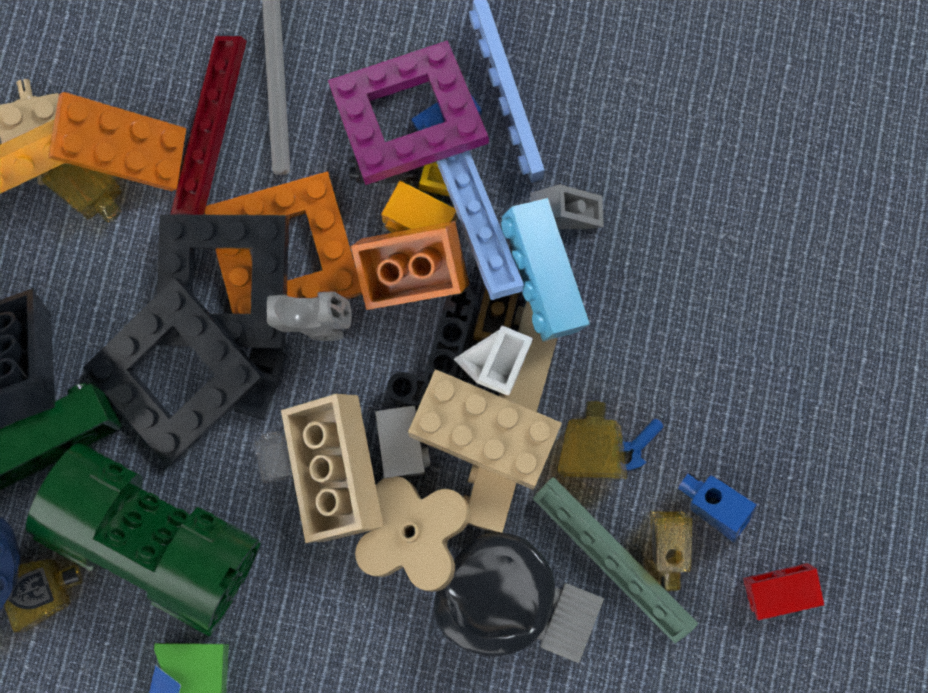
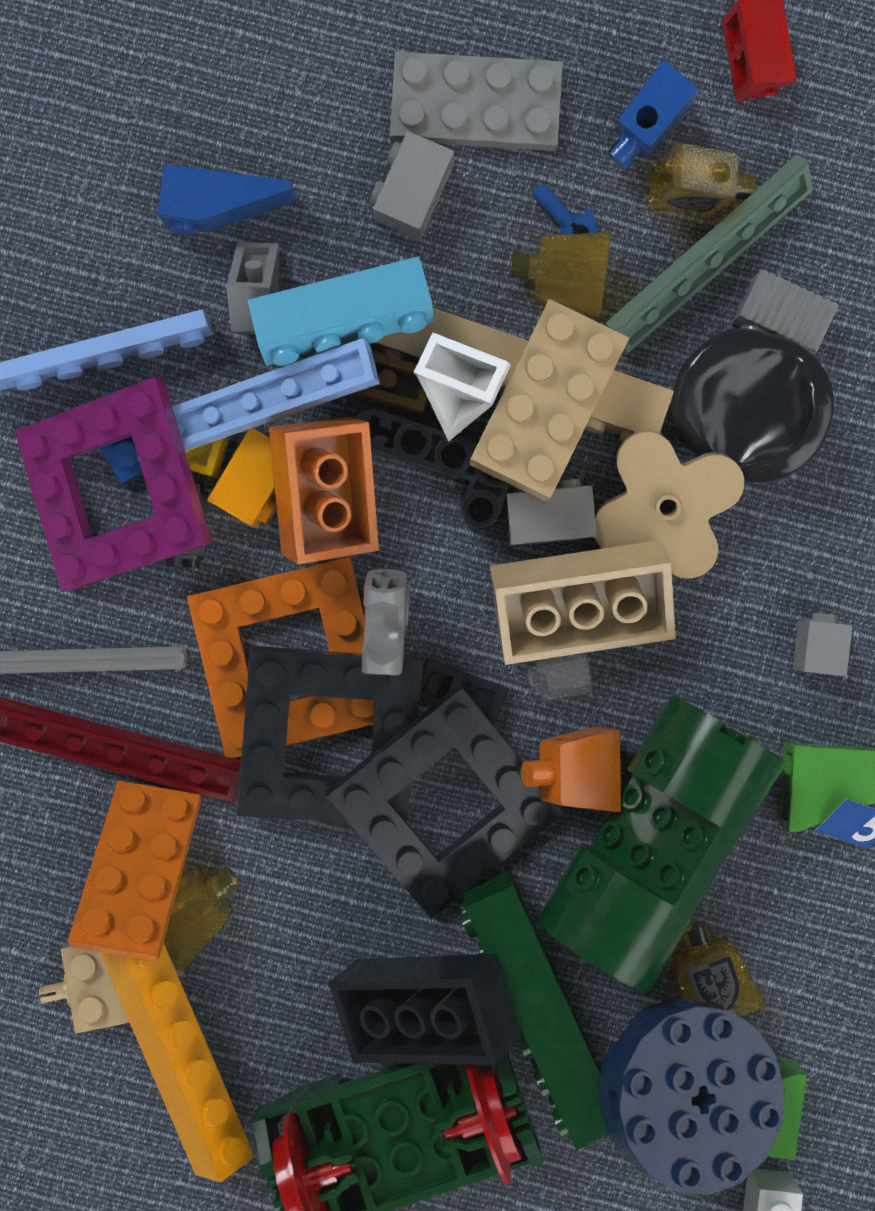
camera: 85 degrees left, 10 degrees up
(200, 473) = (578, 769): none -> orange torso
(305, 667) = (822, 645): none -> light grey brick
(630, 175) = (214, 199): none -> blue slope
(653, 323) = (412, 185): none -> light grey brick
(724, 371) = (477, 100): none -> light grey plate

